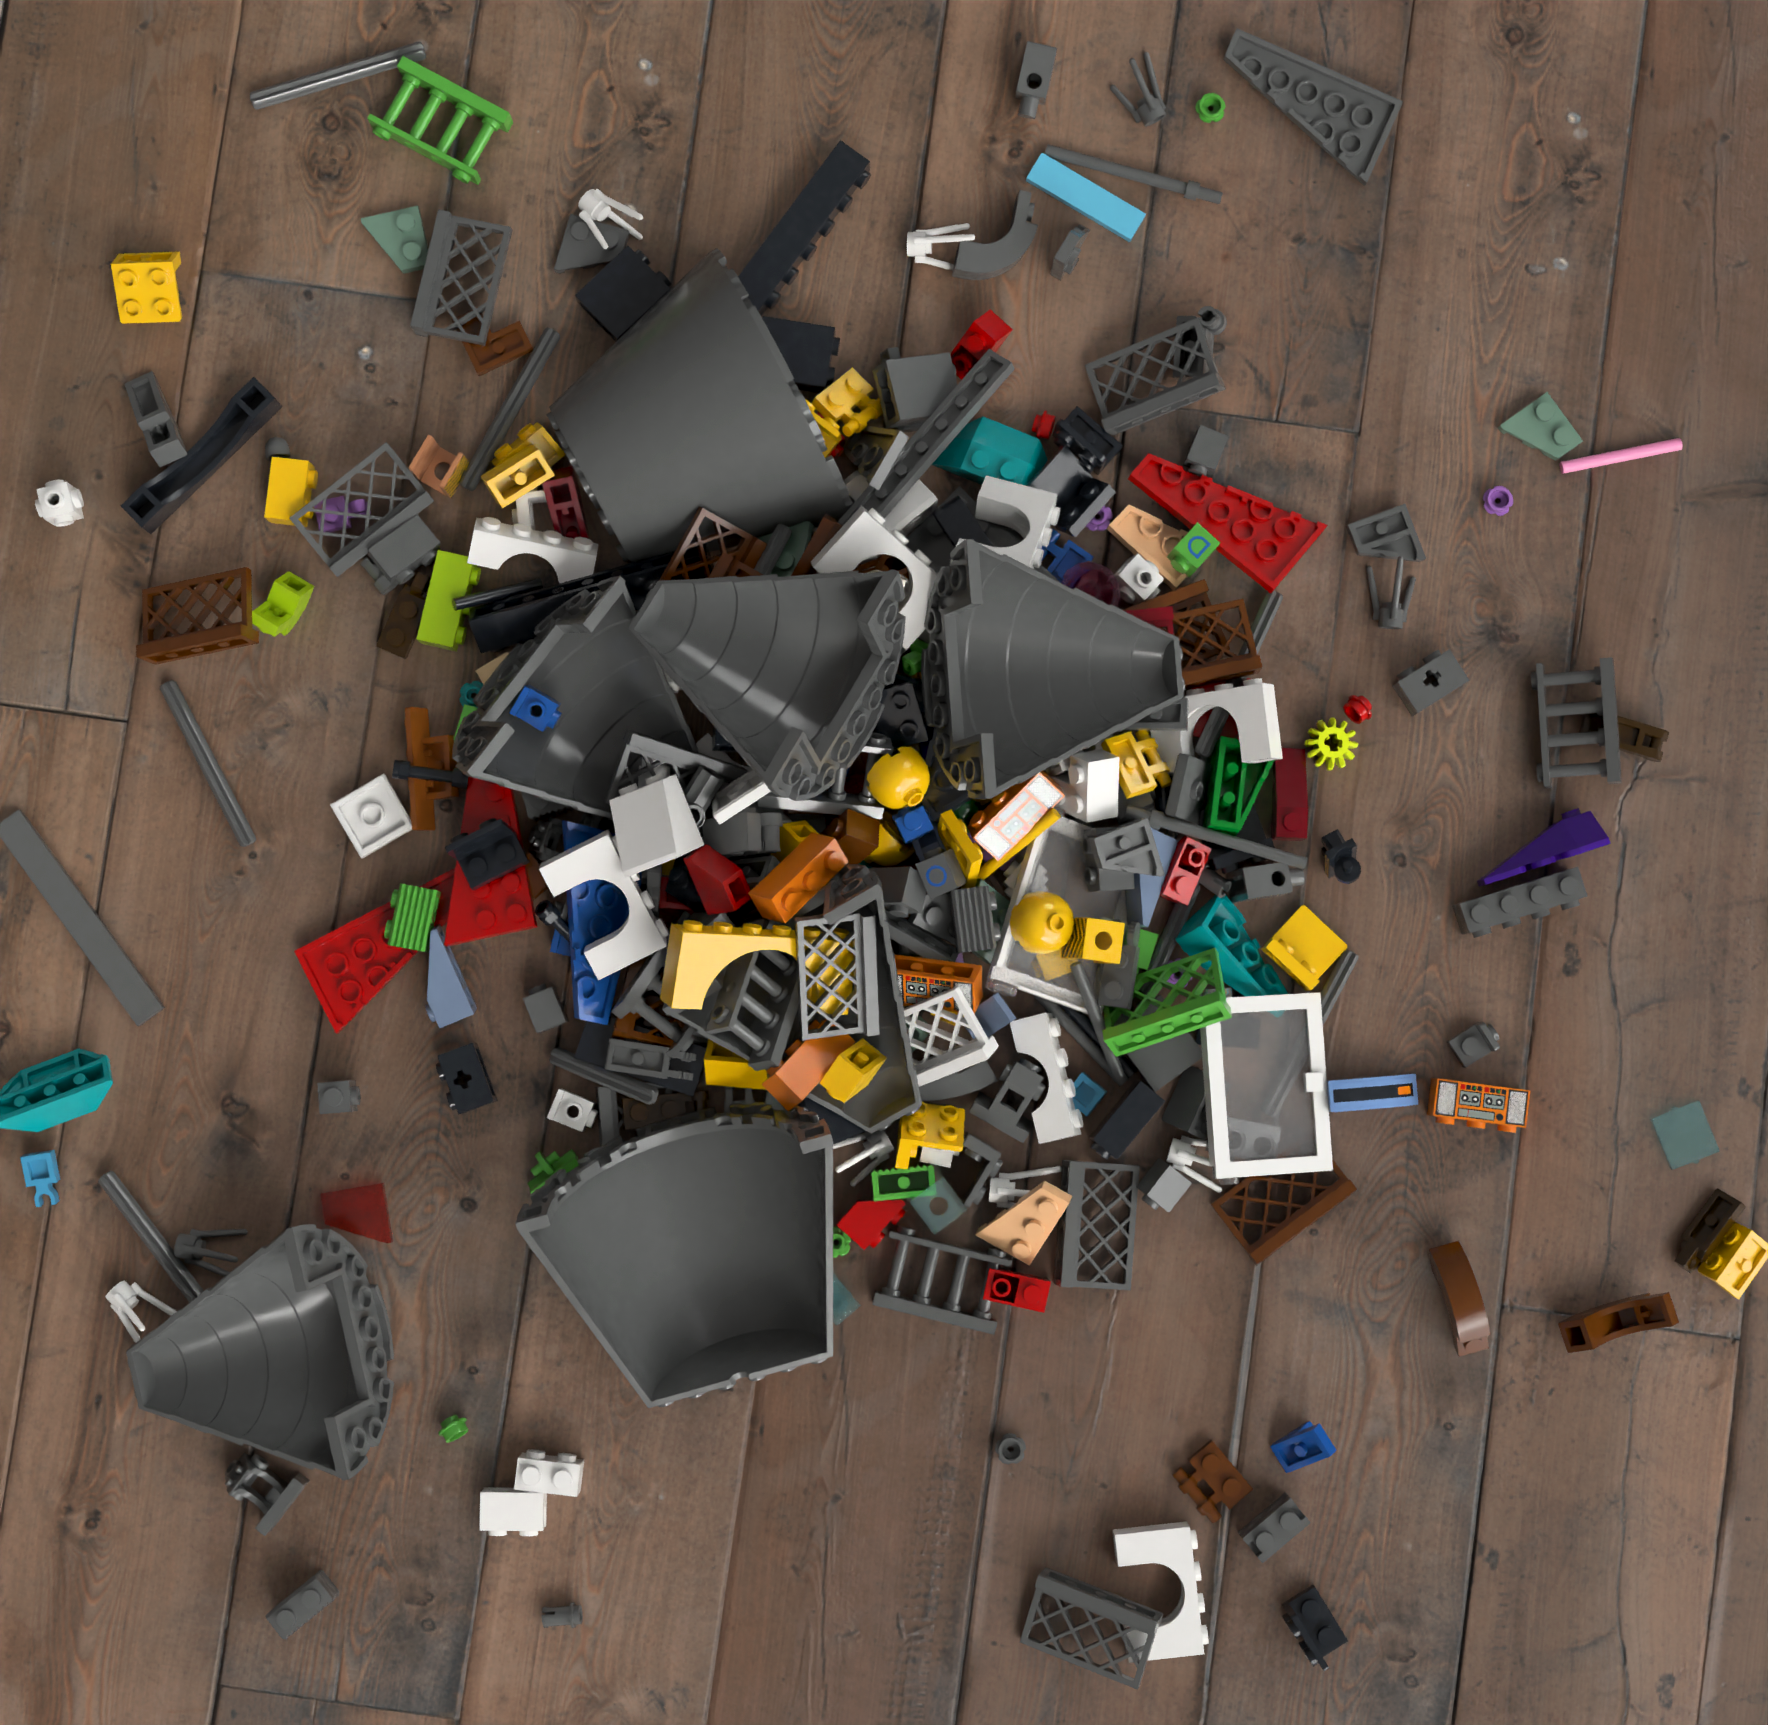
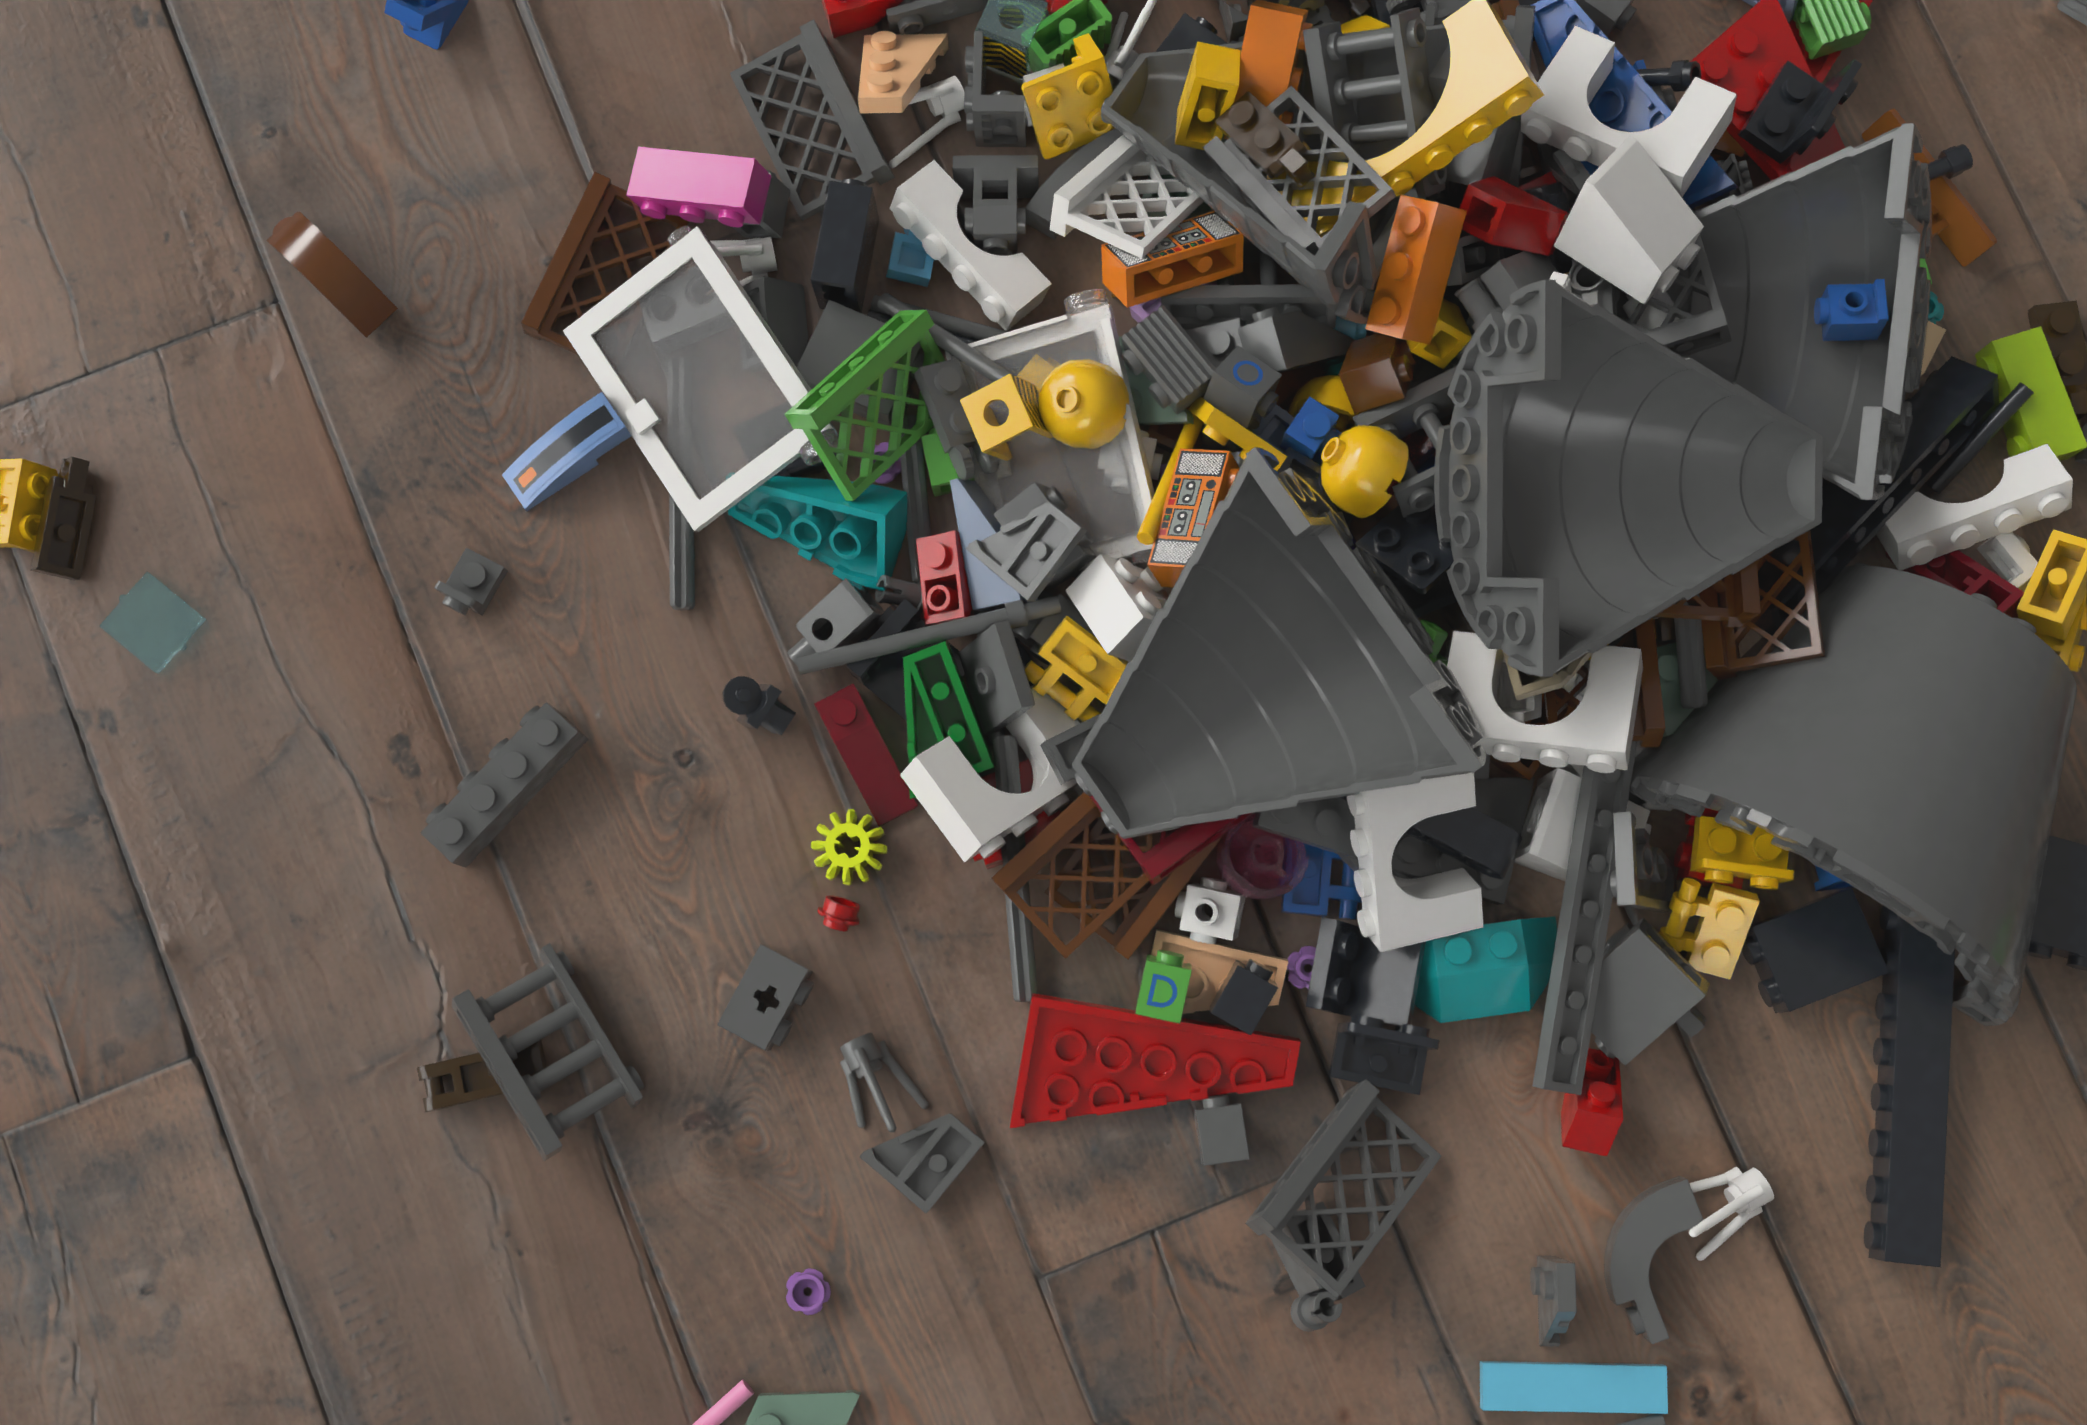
camera: 155 degrees right, 5 degrees down
(372, 815) = (1947, 102): white plate -> none
(842, 1011) = (1265, 139): none -> dark brown hinge
(992, 1015) = (1073, 271): sand blue slope -> none
(1044, 425) = (1449, 1047): red plate -> none
(1148, 518) = (1244, 995): none -> black brick
(1198, 1210) = (699, 186): none -> brick
(1304, 947) = (743, 576): yellow bracket -> none
(1478, 1104) = (426, 511): brick -> none
(1561, 840) = (486, 895): dark purple wedge -> none
(1617, 1318) = (130, 352): reddish brown arch -> none

